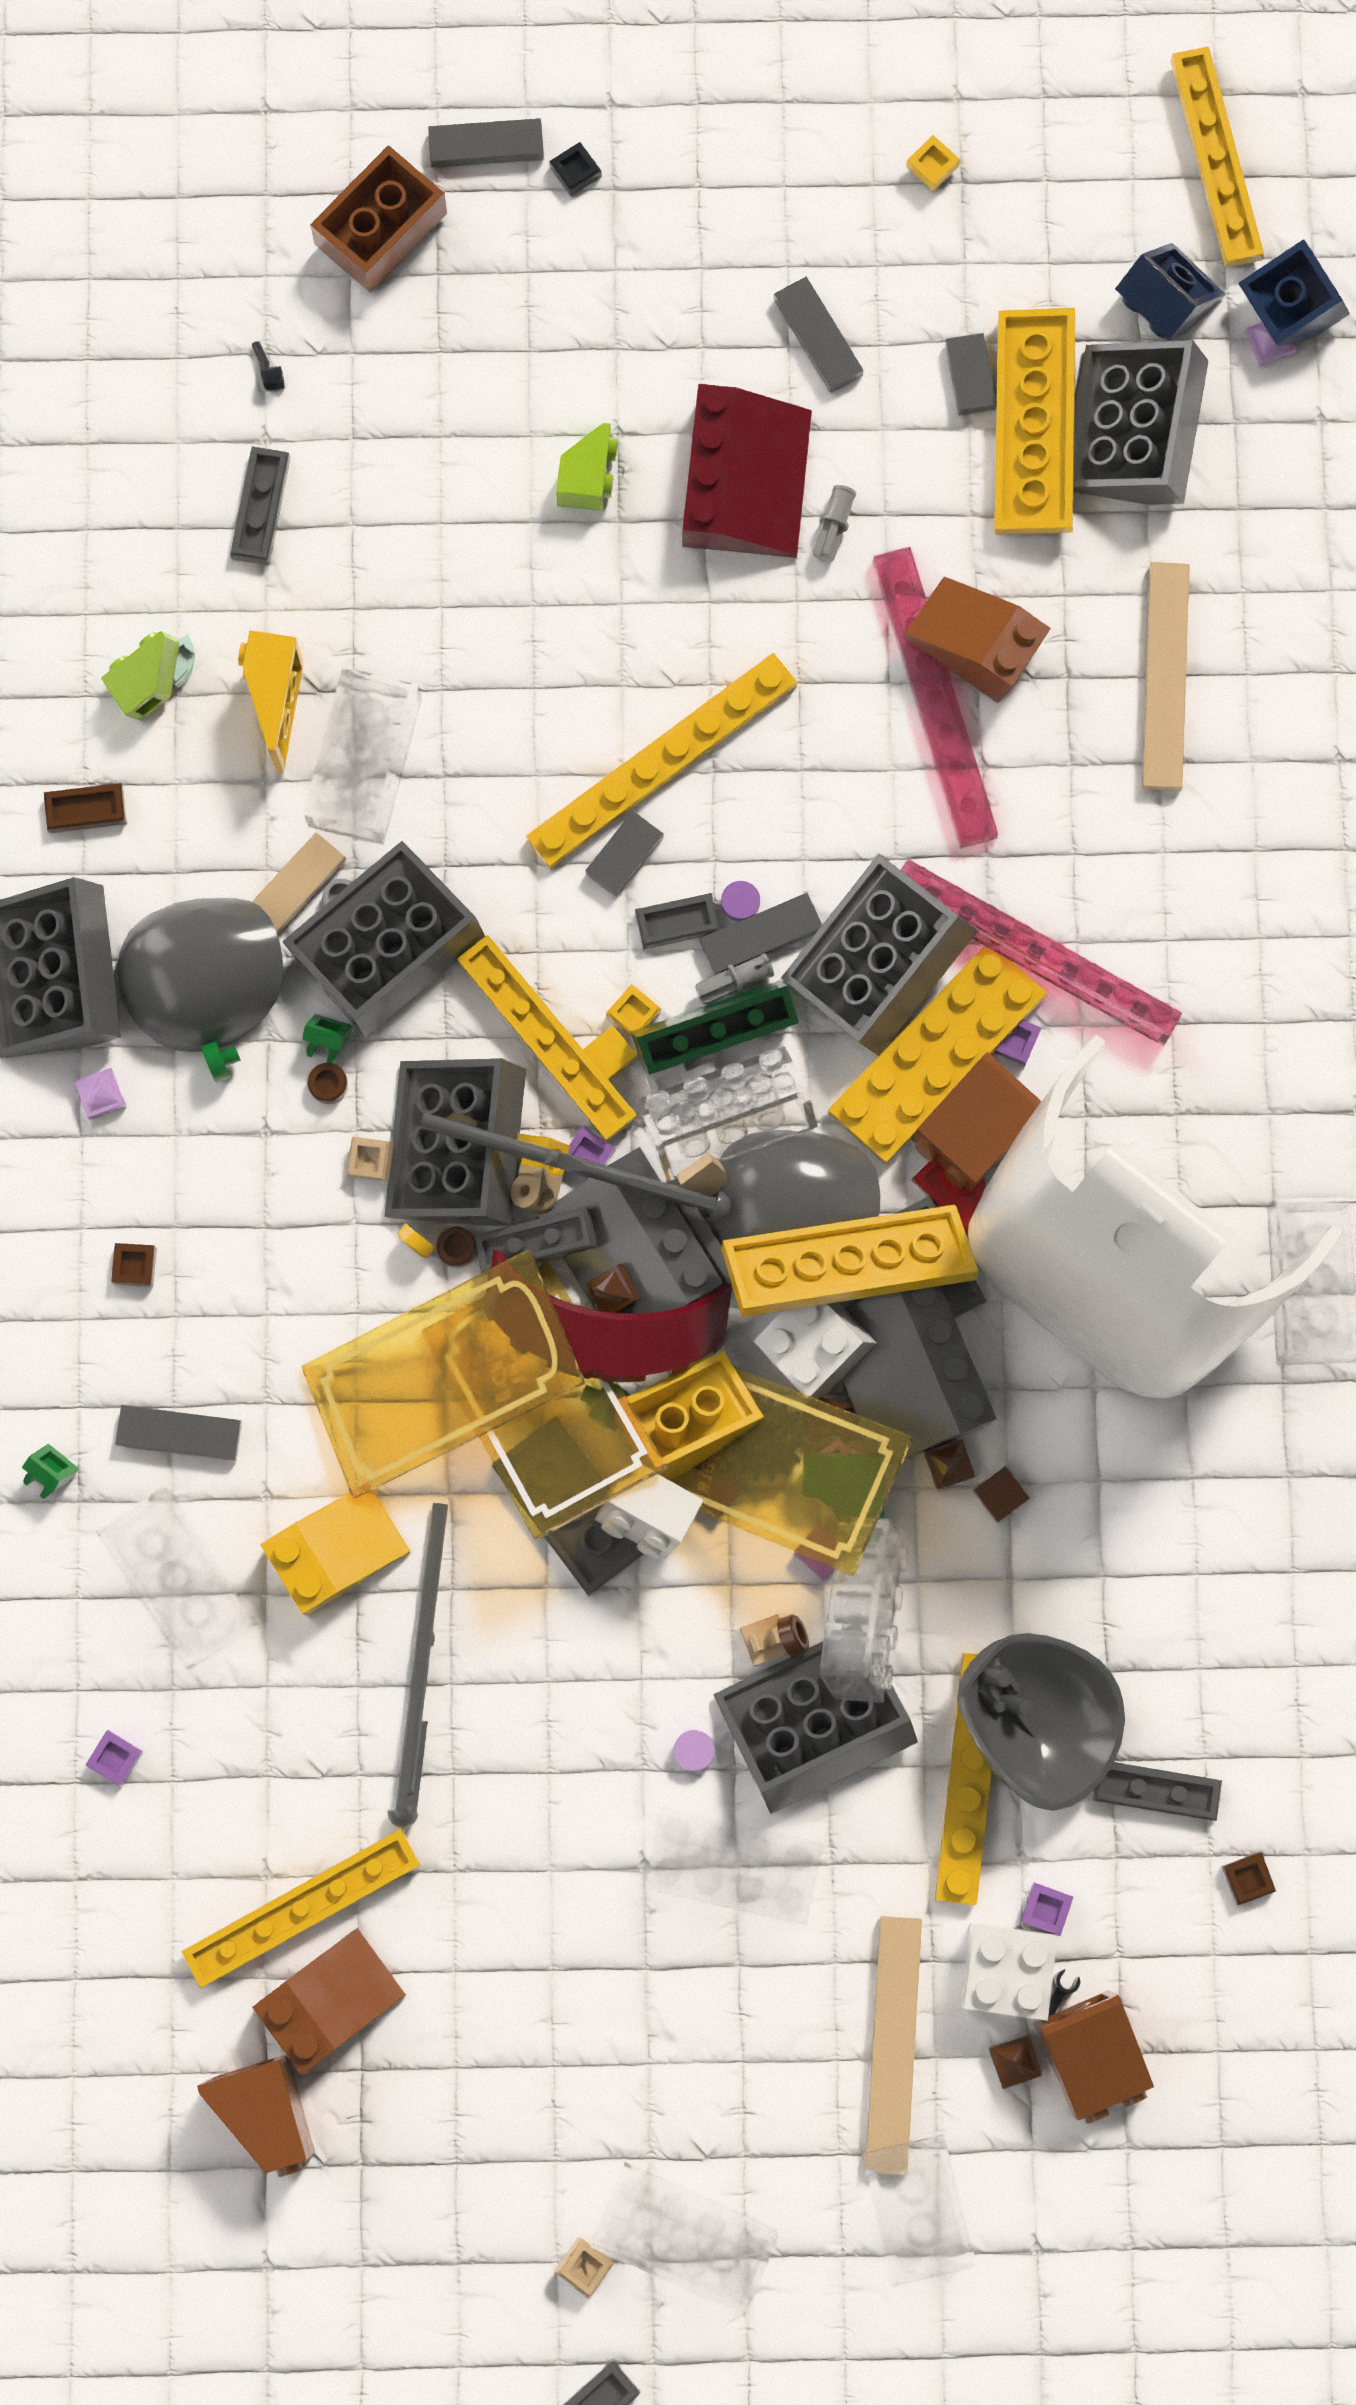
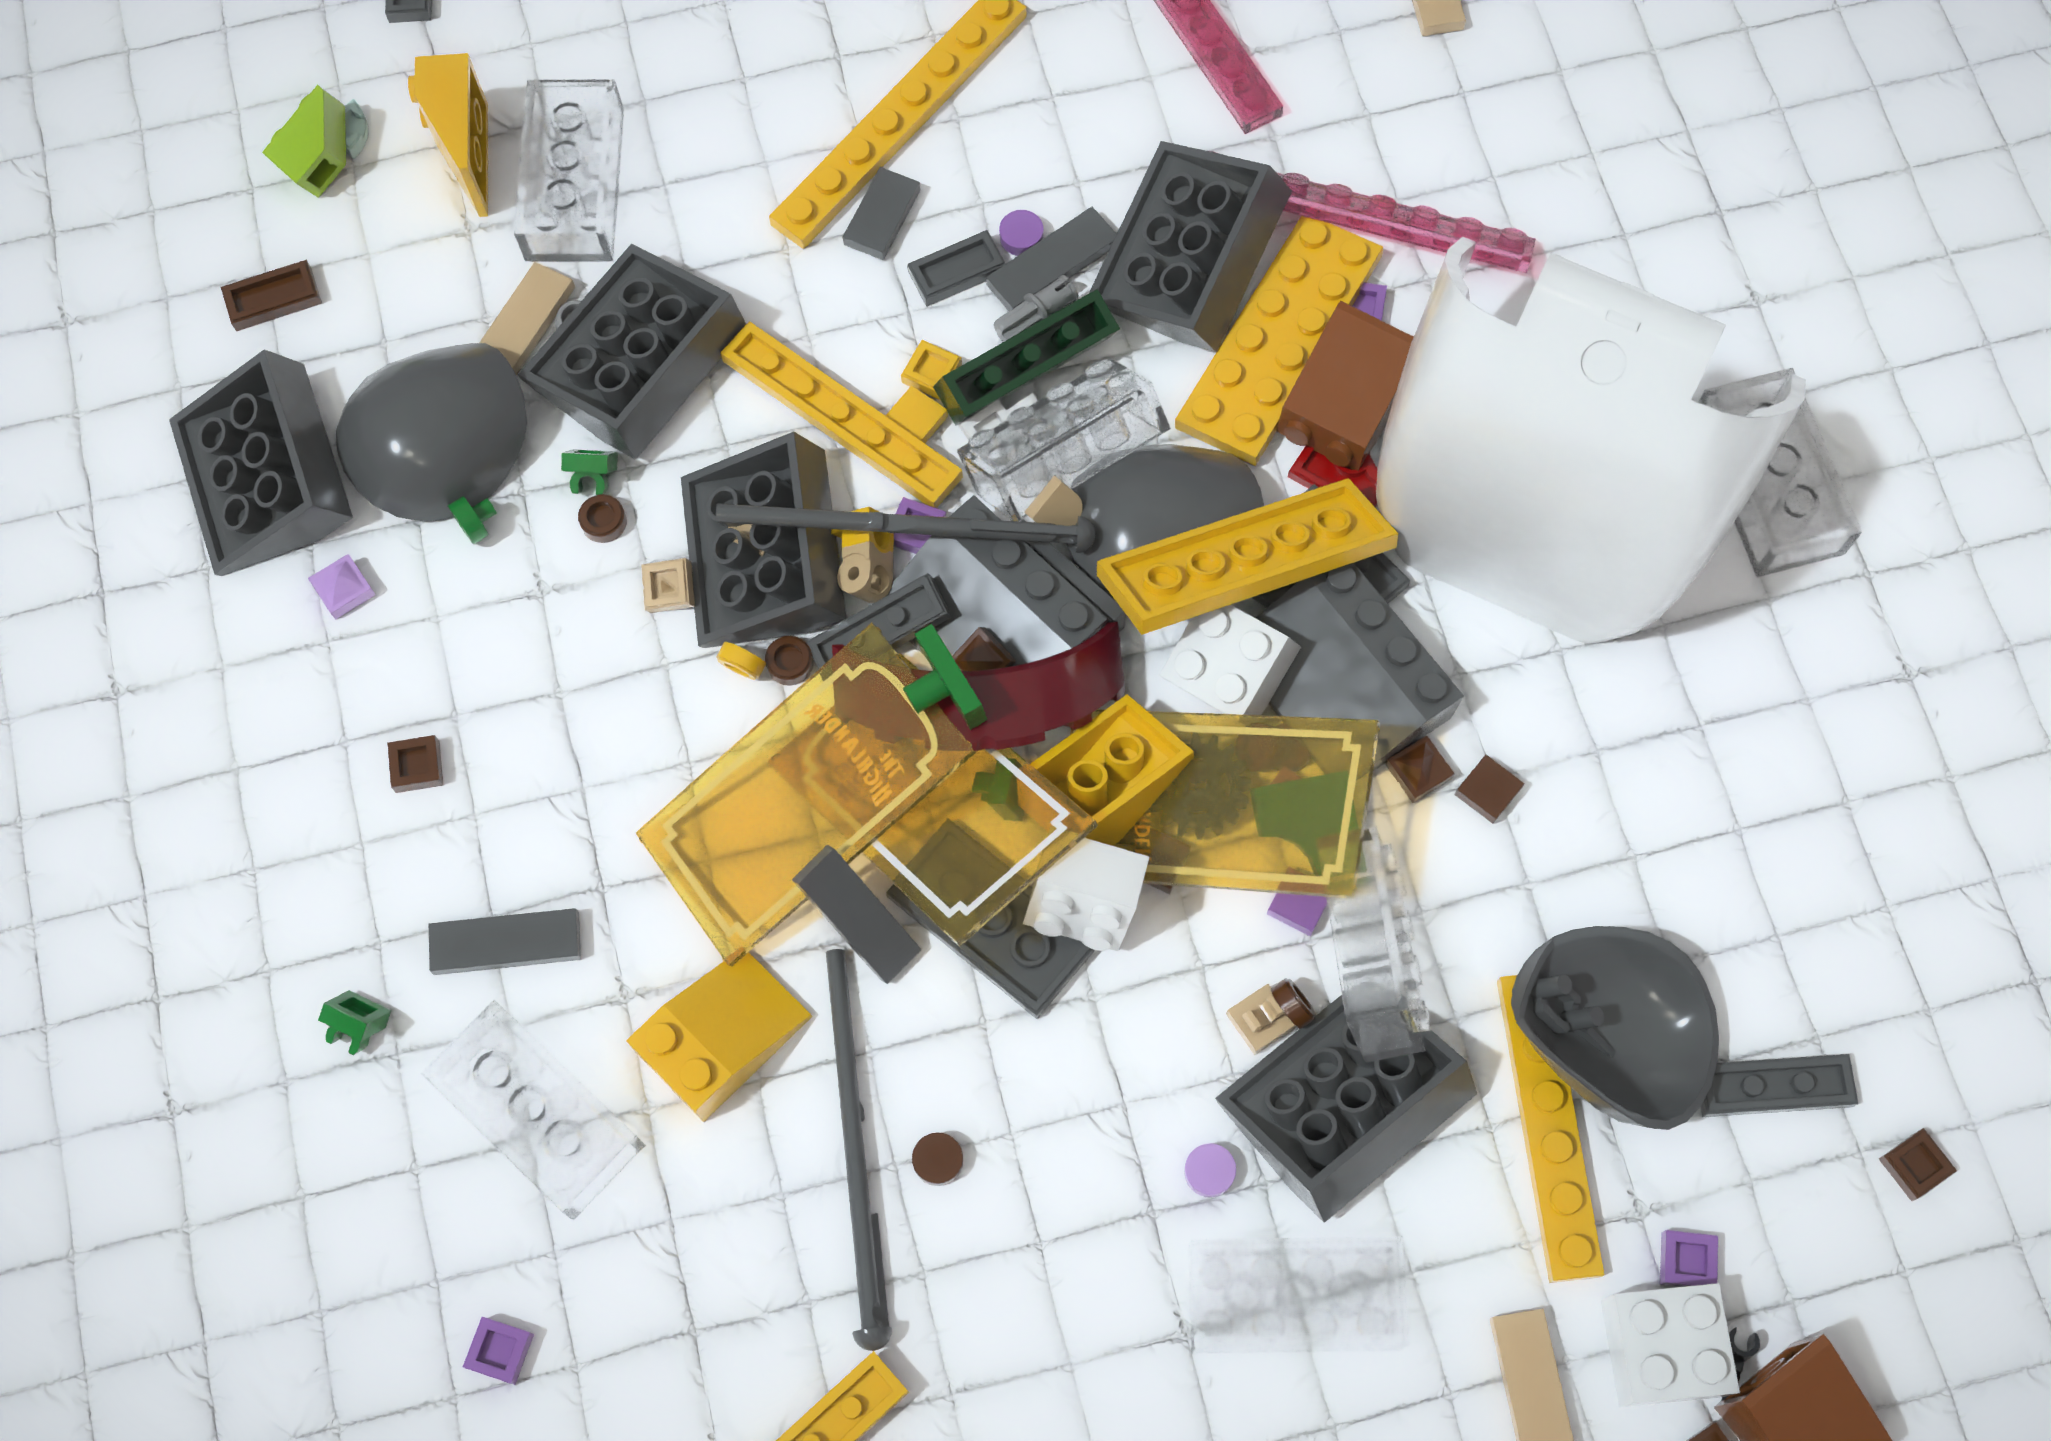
camera: 10 degrees left, 10 degrees down
(463, 1484) = (856, 914): none -> dark grey tile
(483, 1691) = (937, 1159): none -> reddish brown tile
(572, 1320) = (943, 681): none -> green tile

